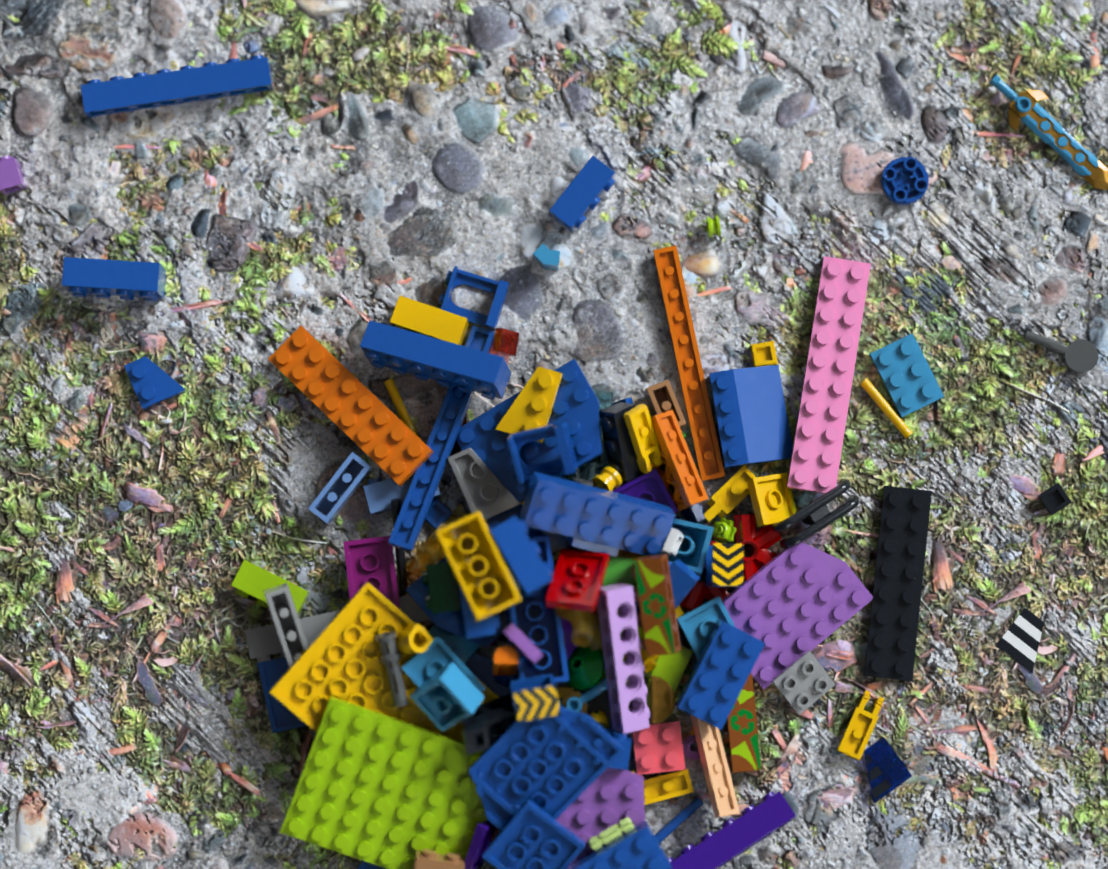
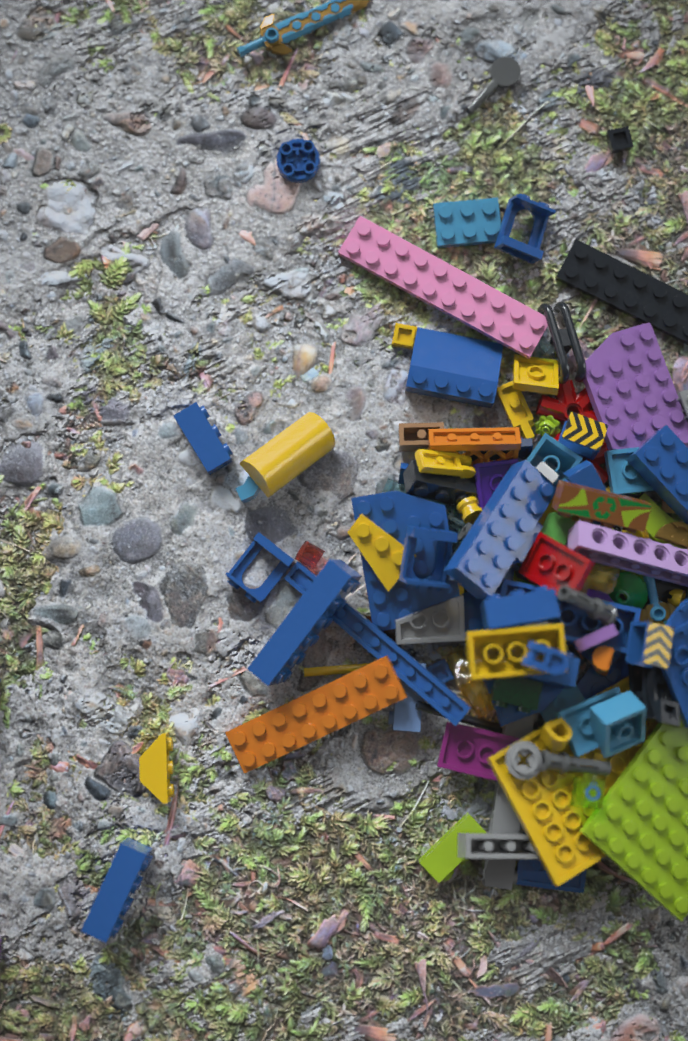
camera: 75 degrees left, 0 degrees up
(151, 382) = (225, 888): blue wing -> none
(243, 272) = (156, 768): none -> yellow slope
(340, 488) = (387, 751): medium blue brick -> none
(371, 691) = (588, 791): none -> clear neon green brick
(380, 627) = (533, 760): none -> light grey gear
(429, 321) = (267, 616): yellow brick -> none
(480, 602) = (554, 661): none -> blue plate
(550, 629) = (593, 607): none -> dark grey pin
(598, 283) = (289, 453): none -> yellow brick
(688, 363) = (387, 402): orange plate -> none
(713, 226) = (275, 336): lime bush -> none
(886, 408) = (479, 253): yellow bar -> none
(940, 448) = (540, 212): none -> blue panel

